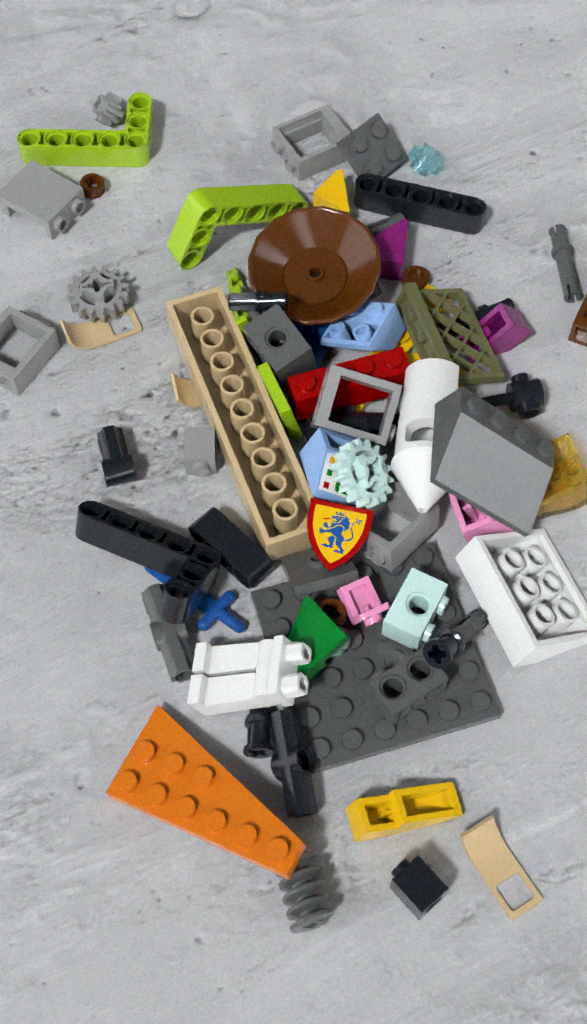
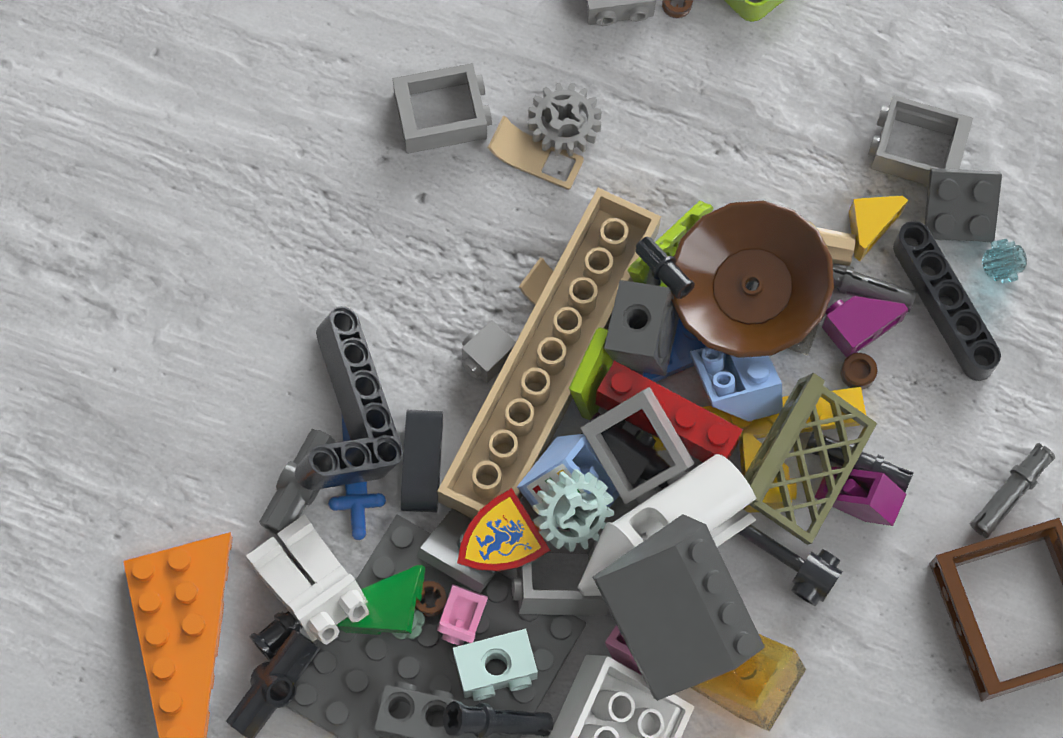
camera: 45 degrees right, 10 degrees up
(116, 461) = (413, 297): black piece -> none
(223, 206) = (758, 149): lime beam -> none

